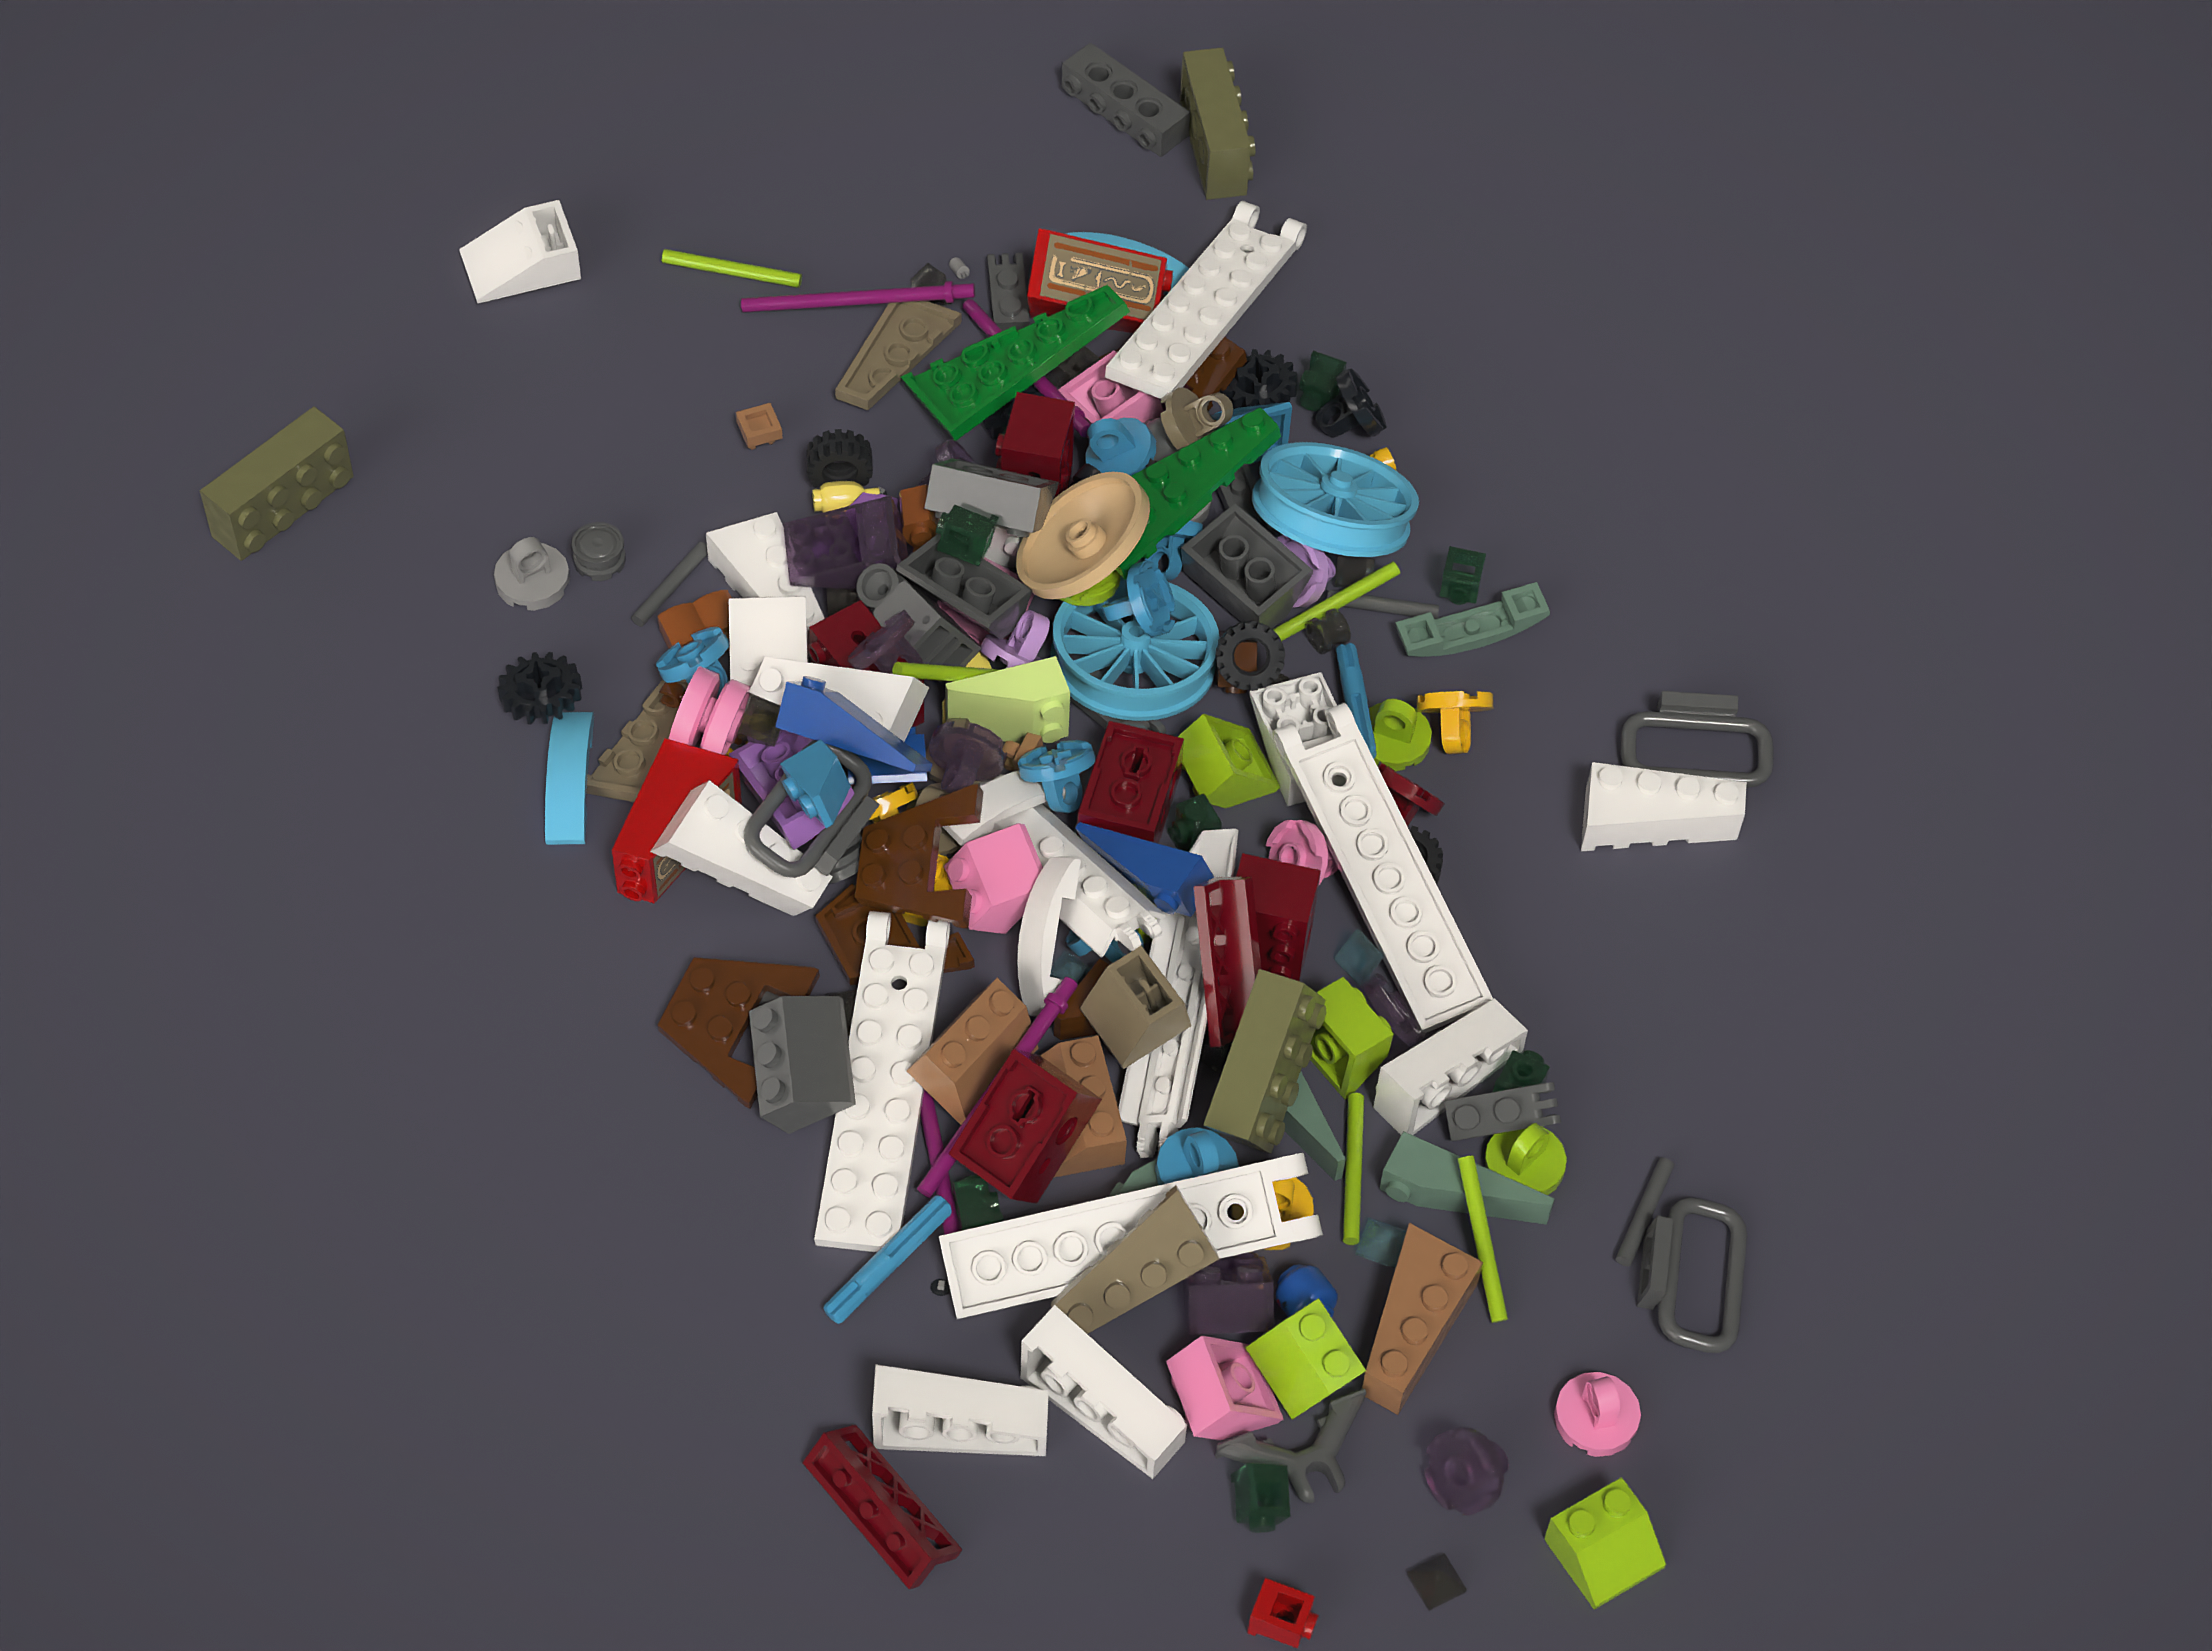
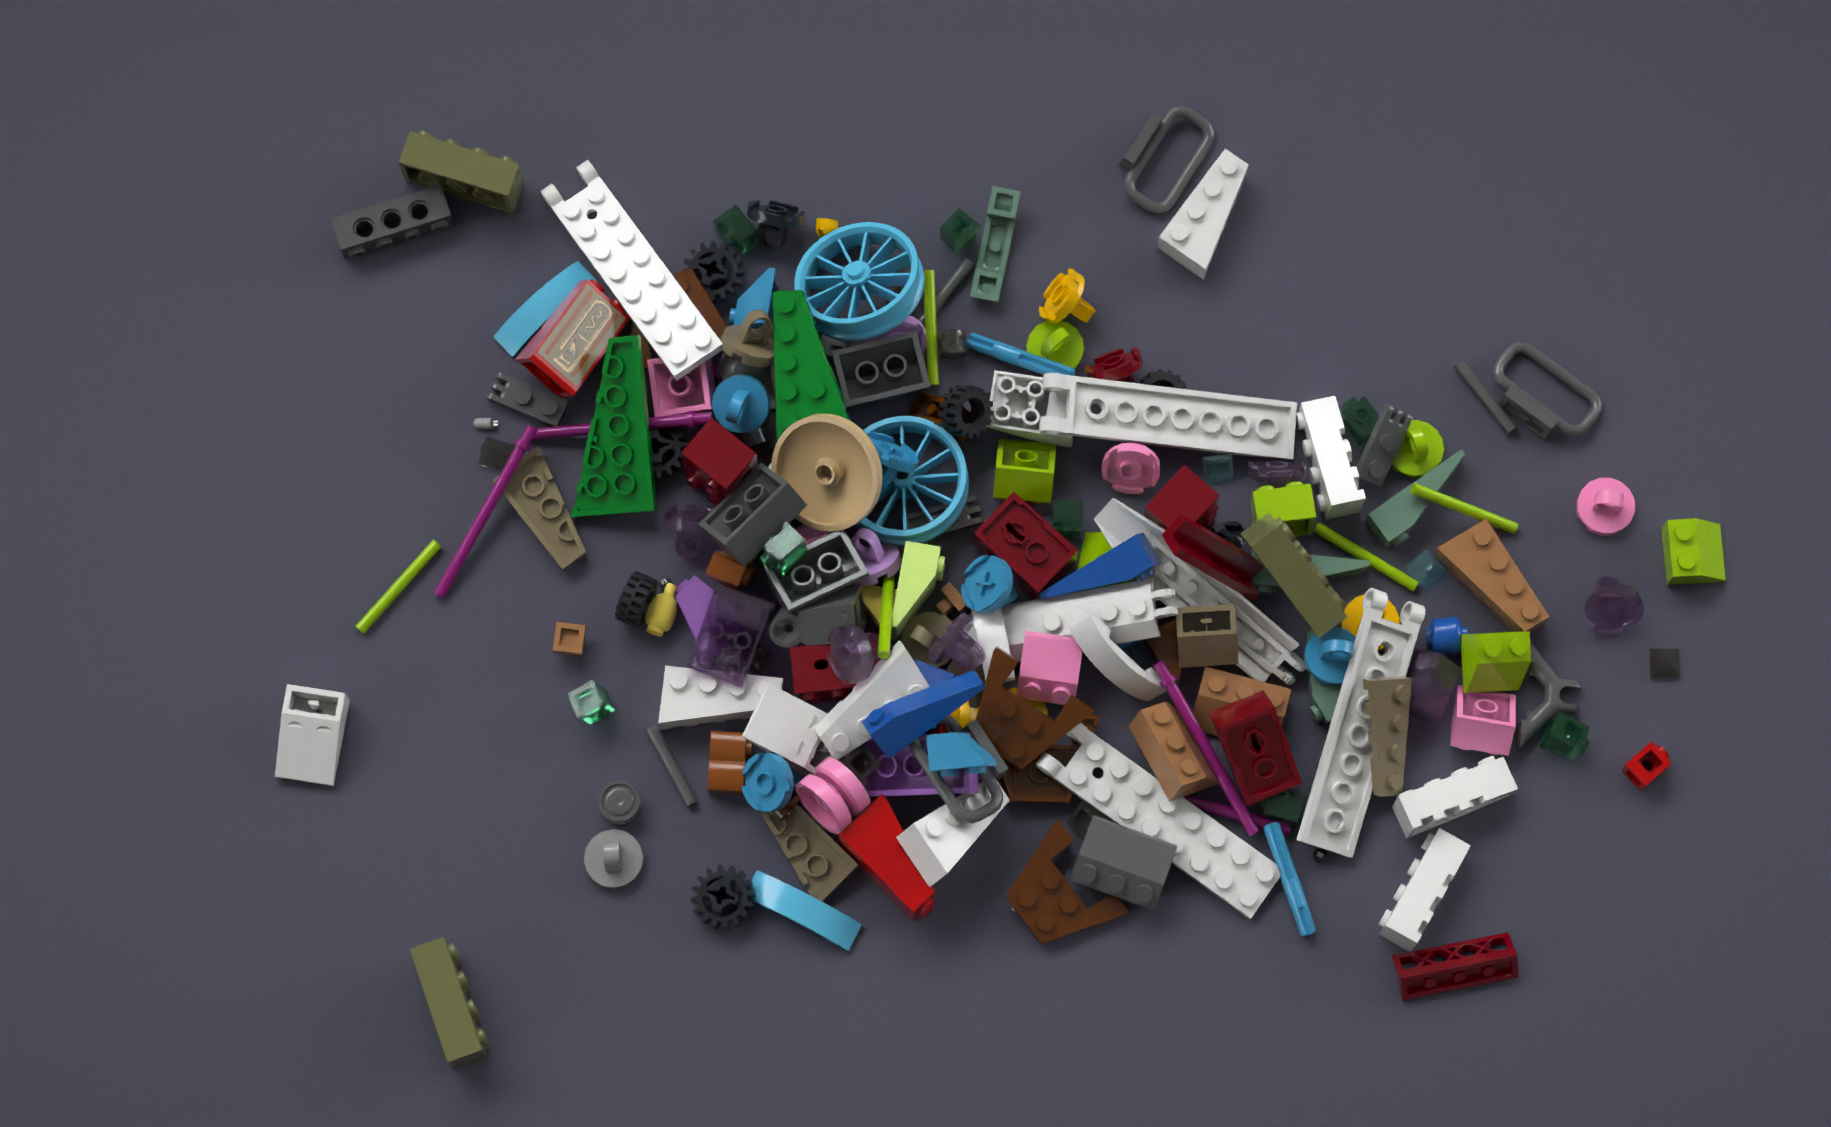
camera: 60 degrees left, 20 degrees up
(697, 472) = (594, 708): none -> clear green brick

